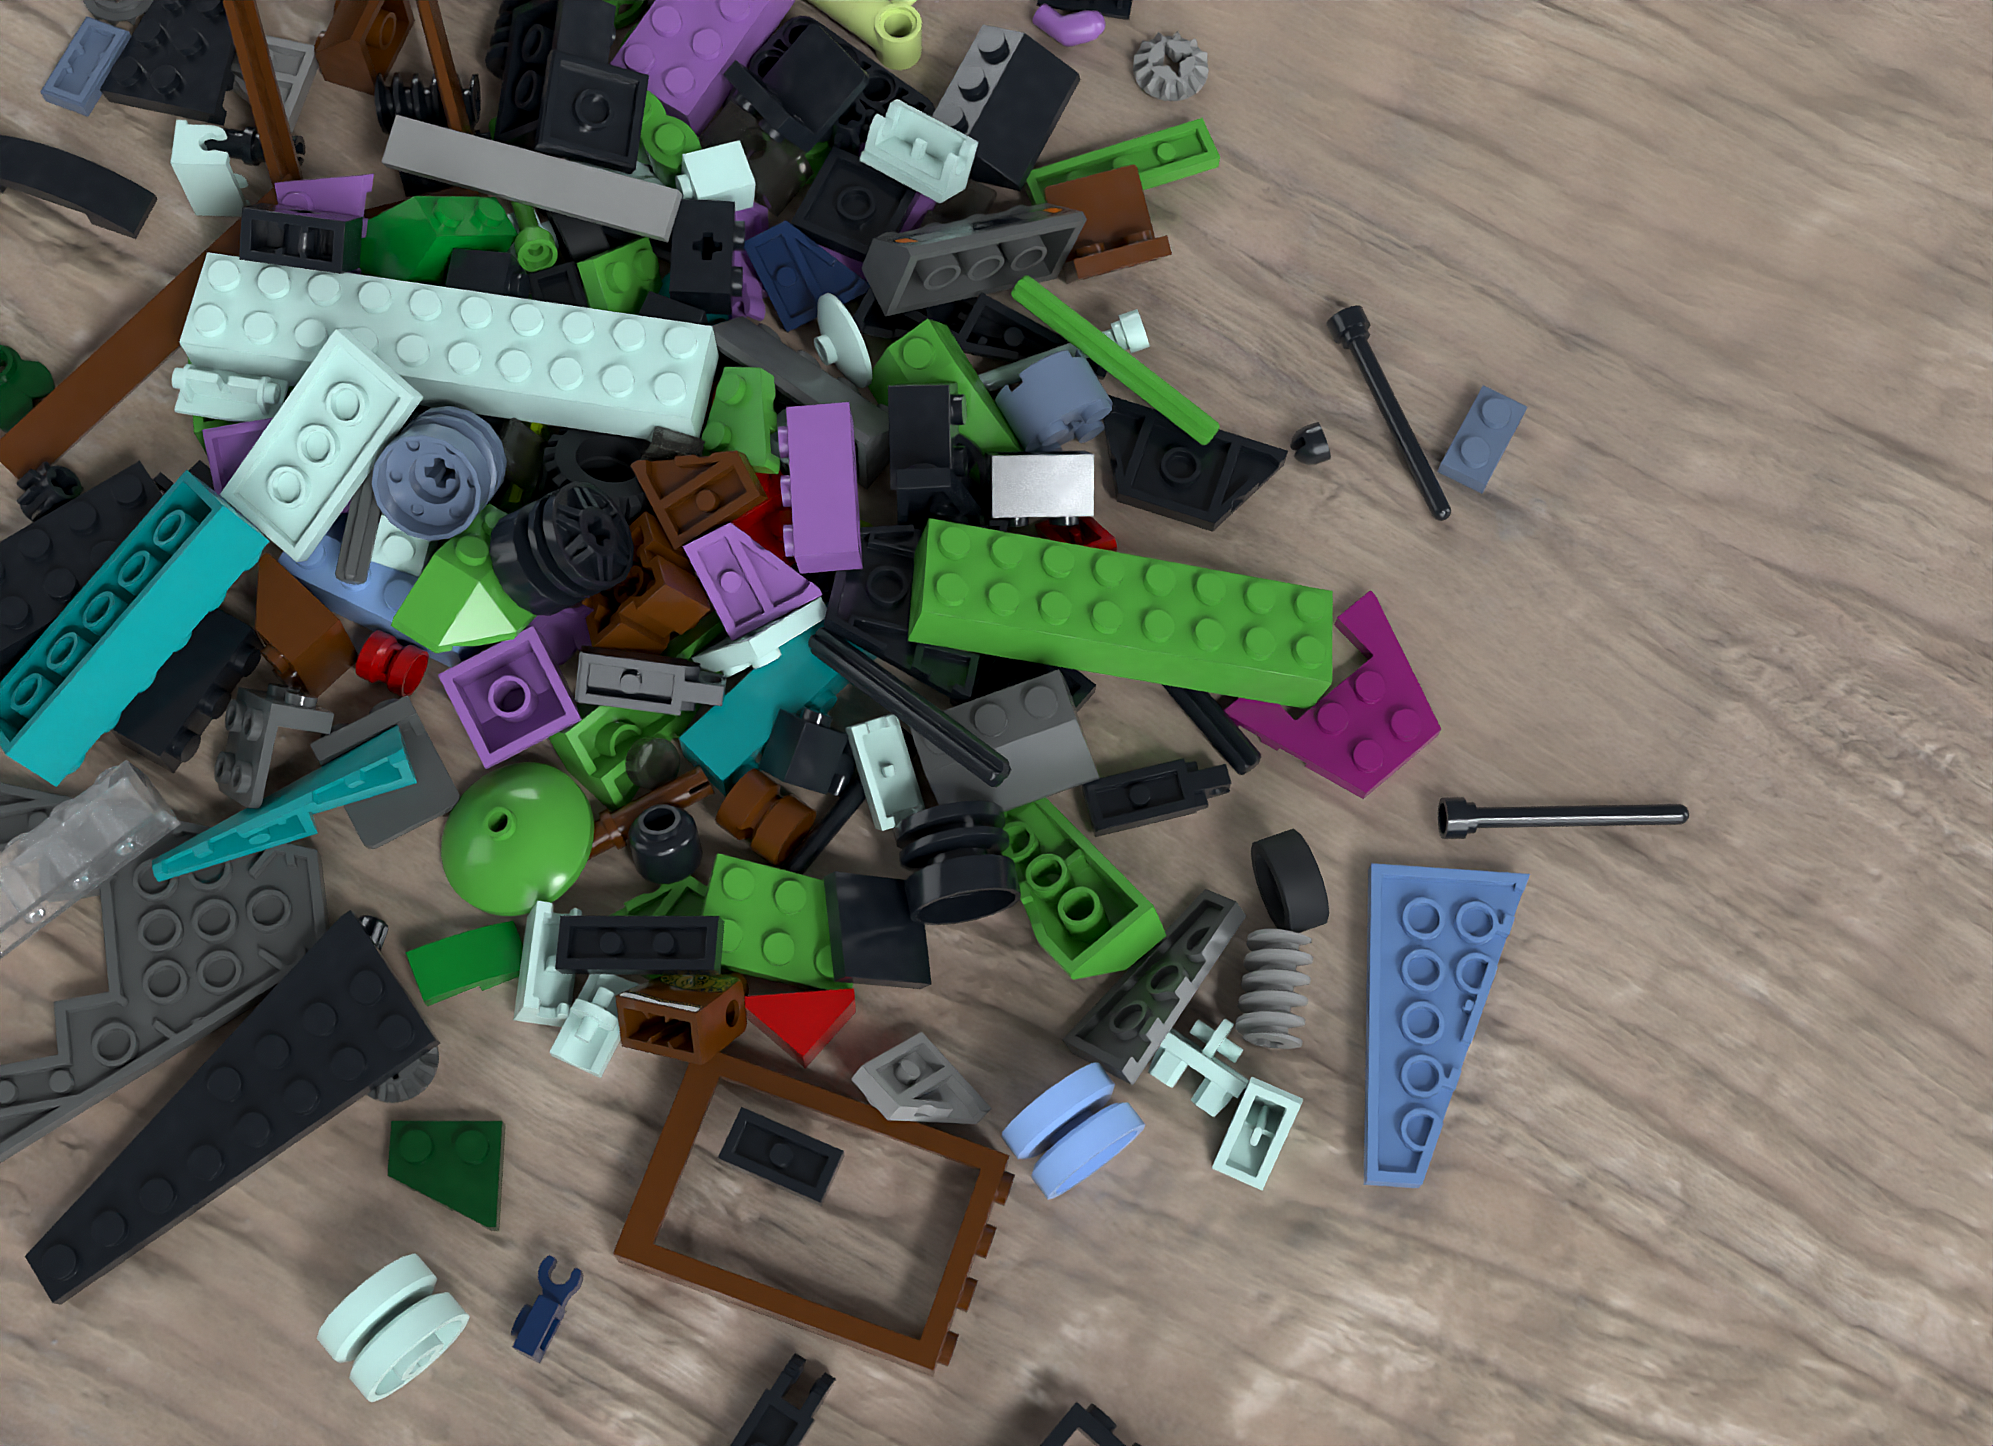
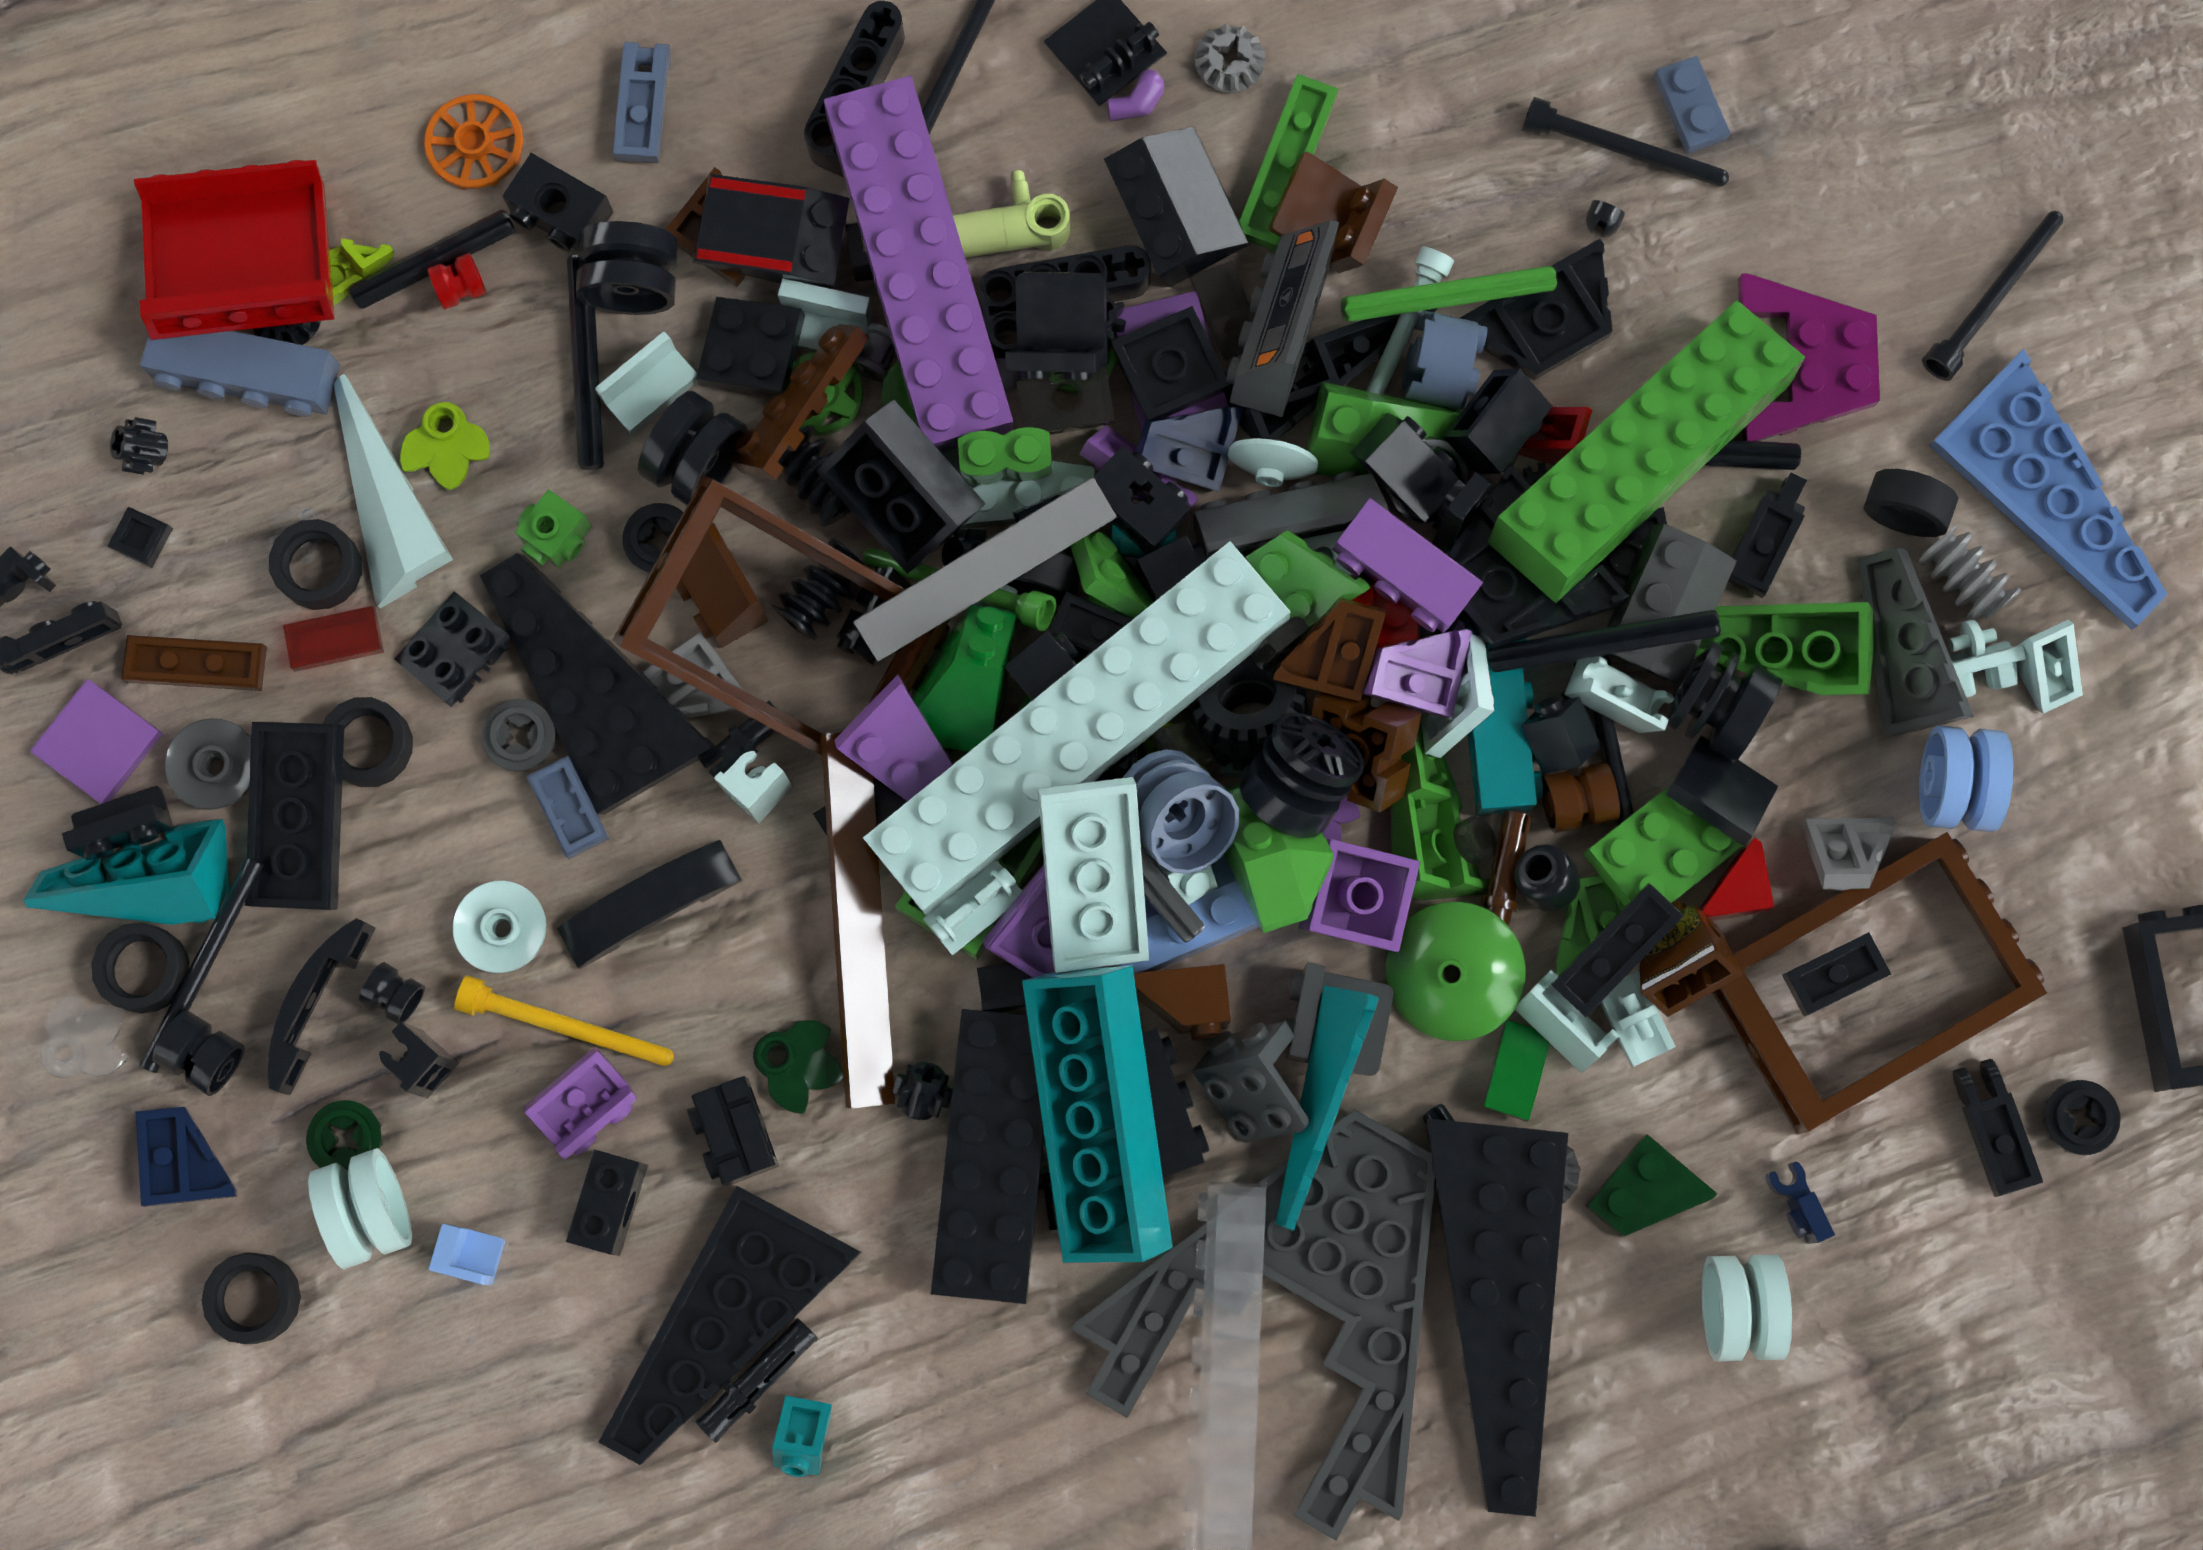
camera: 45 degrees left, 10 degrees up
(300, 238) = (912, 764): black brick -> none
(392, 663) = (1244, 959): red wheel -> none
(591, 112) = (972, 485): black tile -> none
(645, 681) = (1429, 797): hinge -> none
(717, 175) = (1084, 443): light aqua brick -> none
(919, 151) = (1174, 287): light aqua hinge -> none

